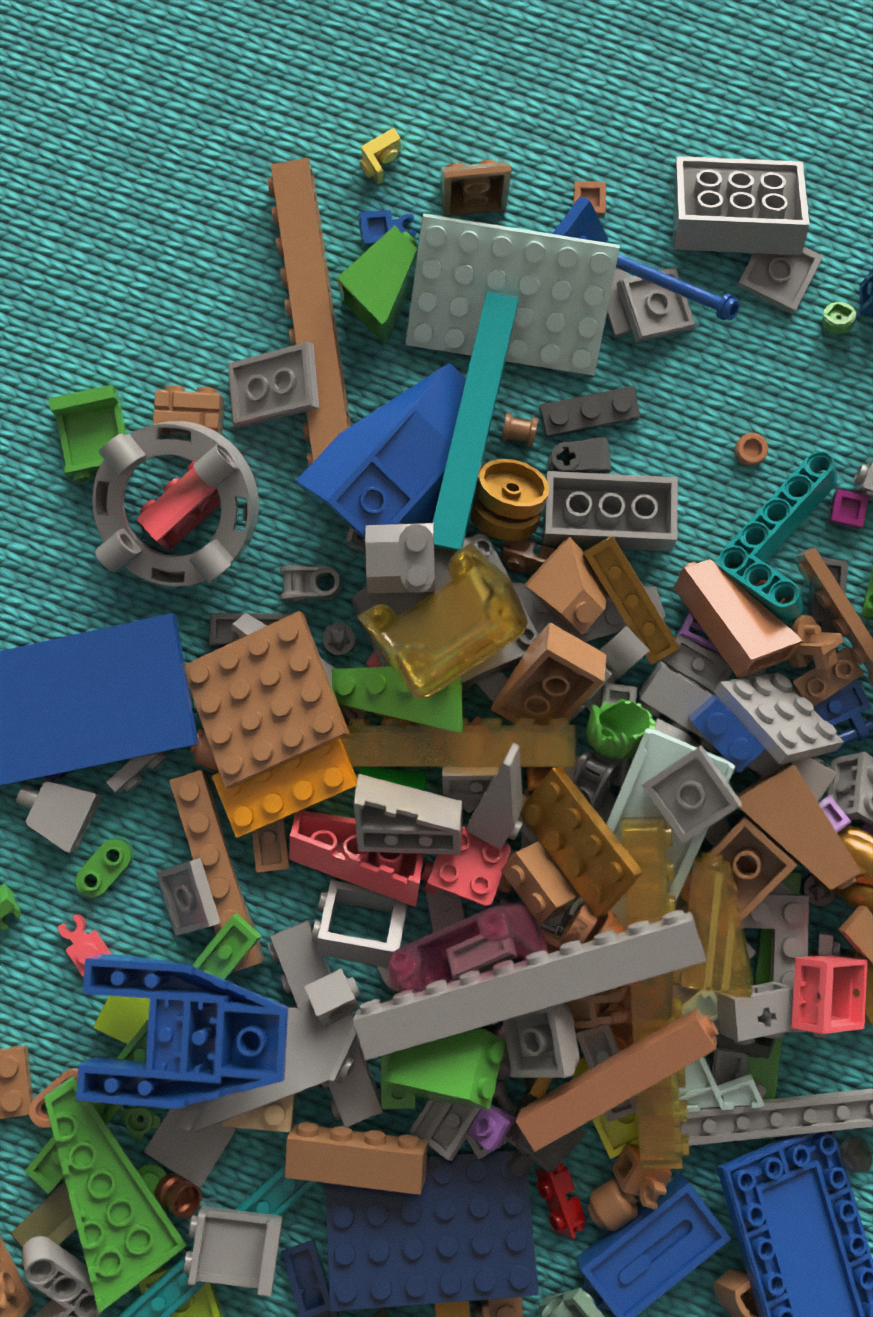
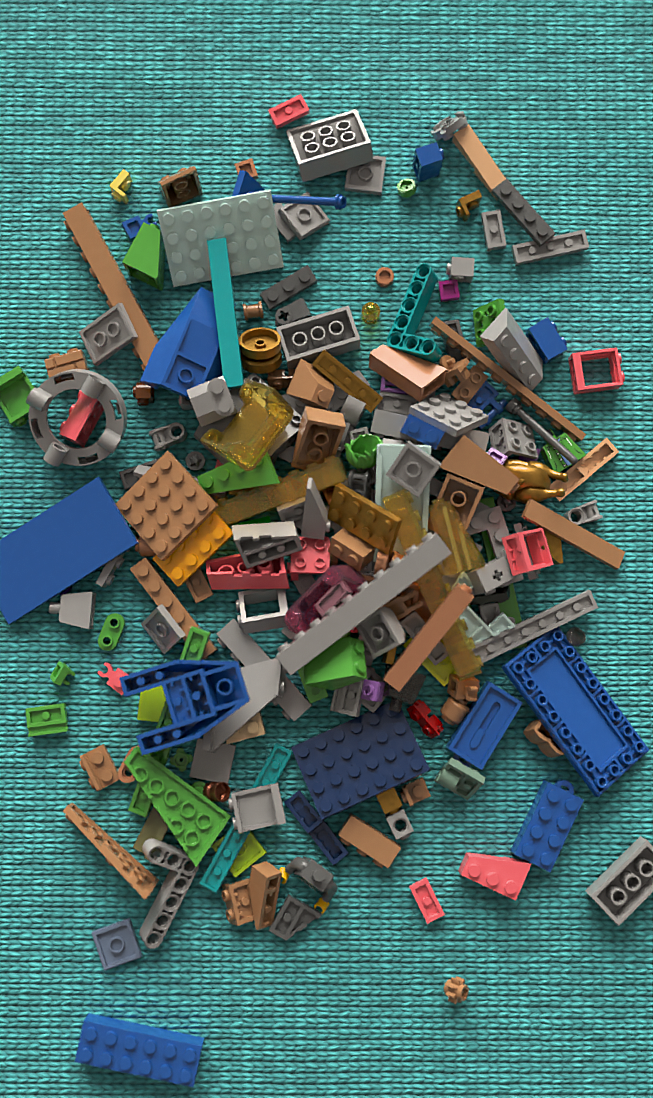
camera: 20 degrees left, 0 degrees up
(294, 502) = (143, 393): none -> reddish brown plate
(333, 997) = (261, 651): light grey brick -> none
(356, 1158) = (305, 734): medium nougat brick -> none
(692, 127) = (288, 111): none -> coral plate
(702, 506) = (372, 316): none -> clear yellow wheel

